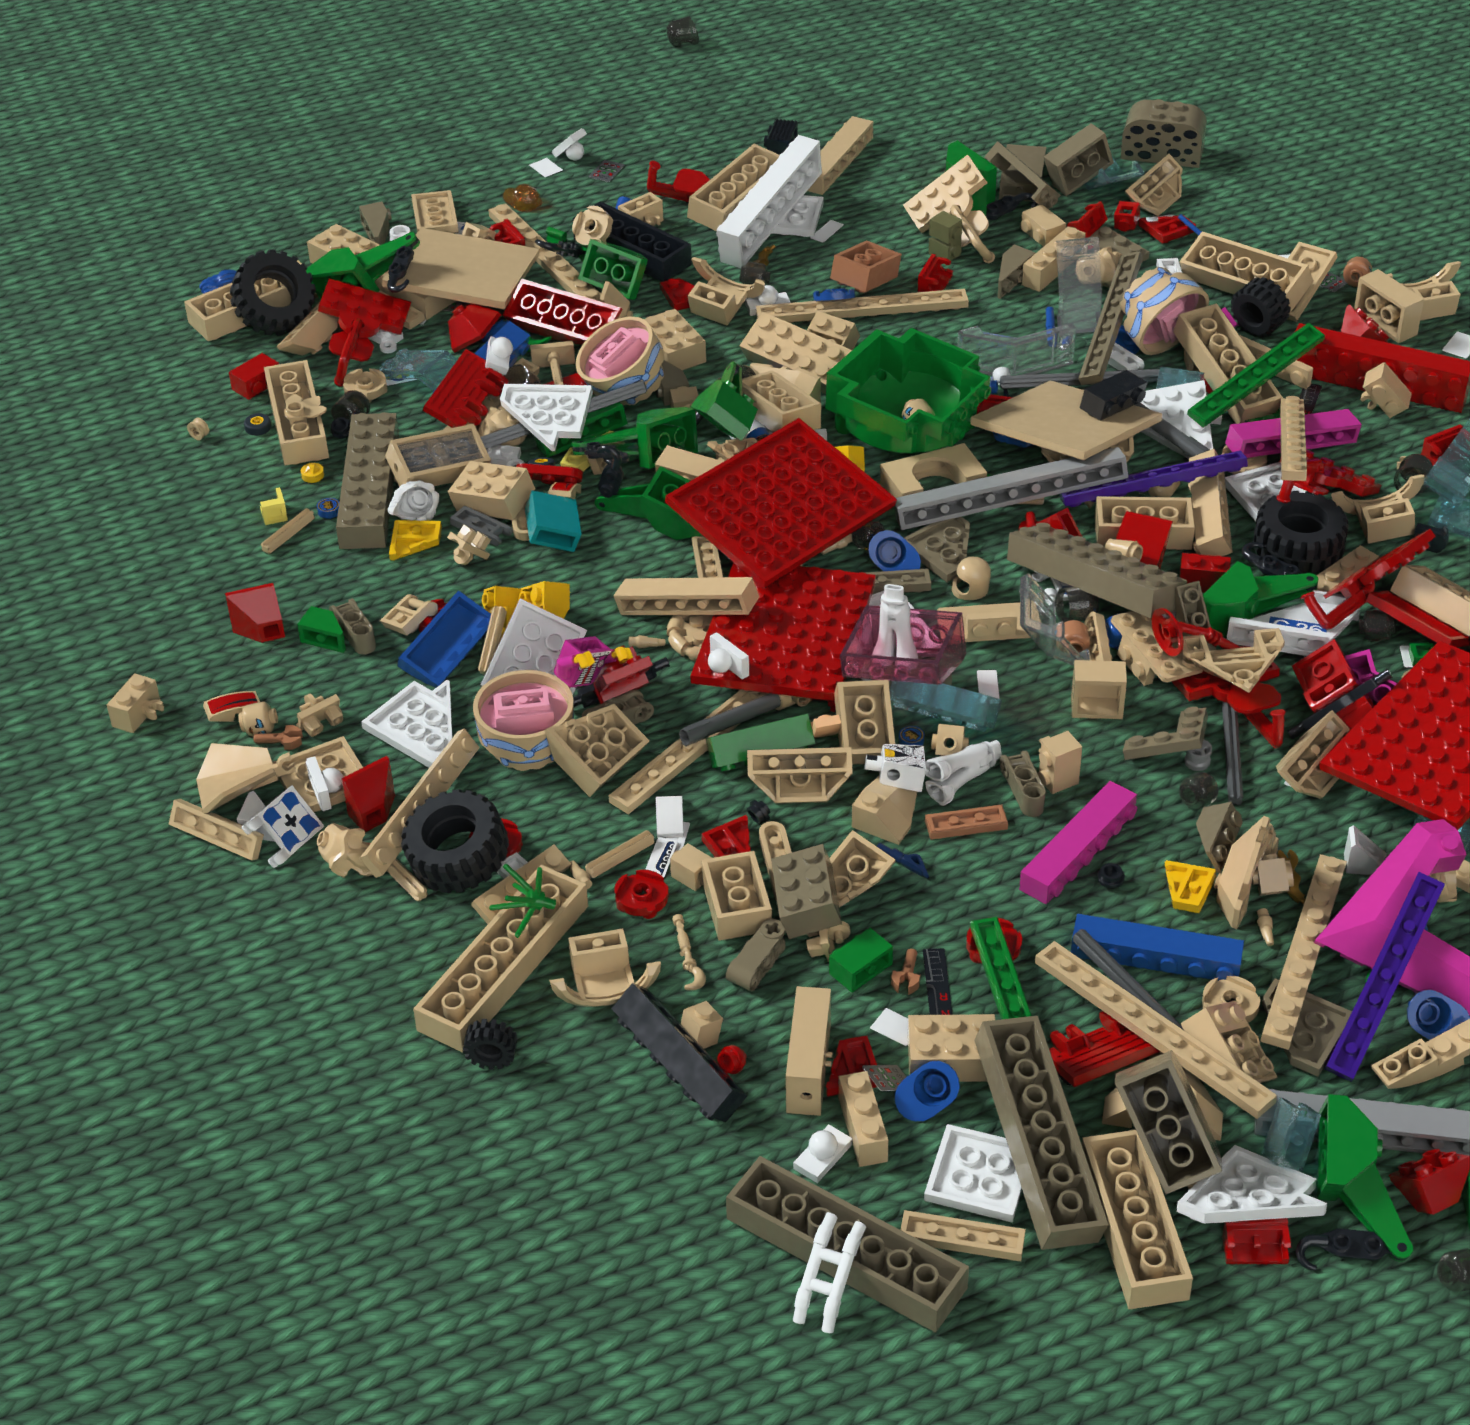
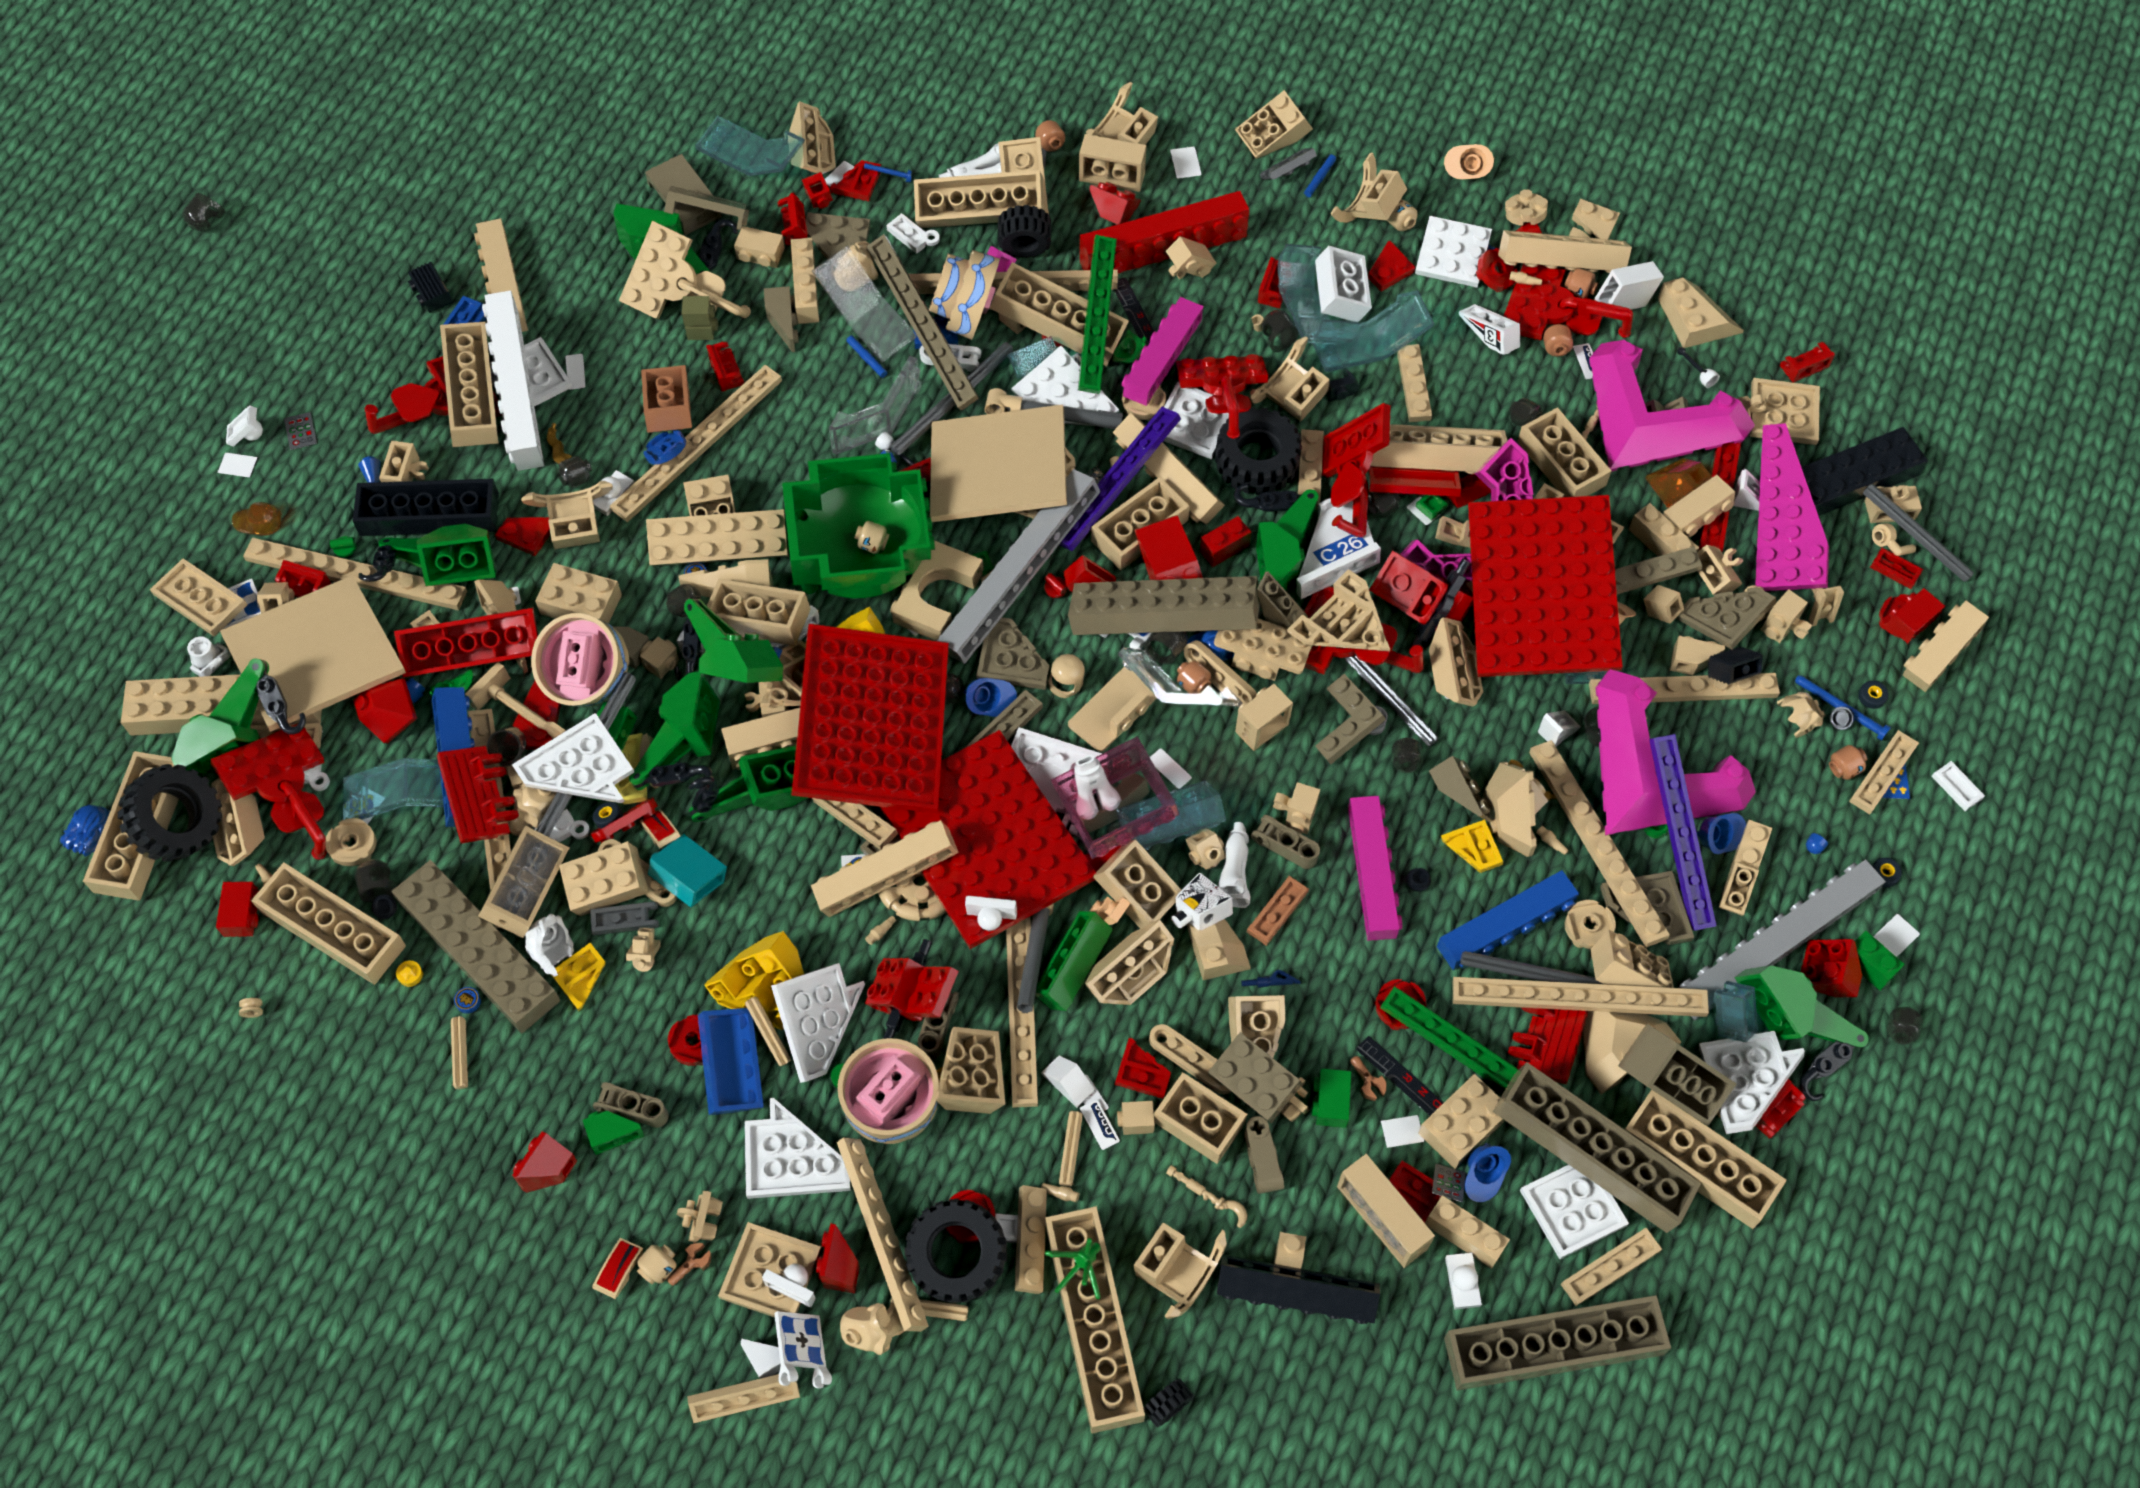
camera: 45 degrees left, 20 degrees up
(134, 703) = (536, 1336): tan brick -> none
(236, 770) = (709, 1338): tan panel -> none
(257, 424) = (302, 964): black wheel -> none
(274, 510) = (421, 1039): light yellow panel -> none
(299, 408) = (347, 917): tan plate -> none
(375, 221) = (148, 645): dark tan slope -> none
(405, 619) = (670, 1068): tan plate -> none
(499, 354) = (468, 733): white tile -> none
(583, 220) = (394, 510): tan plate -> none
(583, 660) = (898, 1007): dark pink torso -> none
(641, 905) = (1118, 1184): red plate -> none
(732, 1059) = (1333, 1259): red plate -> none
(758, 811) = (1132, 1025): black plate -> none
(844, 1262) = (1563, 1372): white piece -> none
(911, 736) = (1168, 862): tile -> none
(1078, 159) = (729, 155): dark tan brick -> none
(1113, 395) = (1020, 415): black brick -> none
(1126, 547) = (1171, 570): tan cone -> none
(1162, 129) = (765, 76): dark tan brick -> none
(1174, 630) = (1285, 629): red dish -> none
(1293, 439) = (1200, 373): tan plate -> none

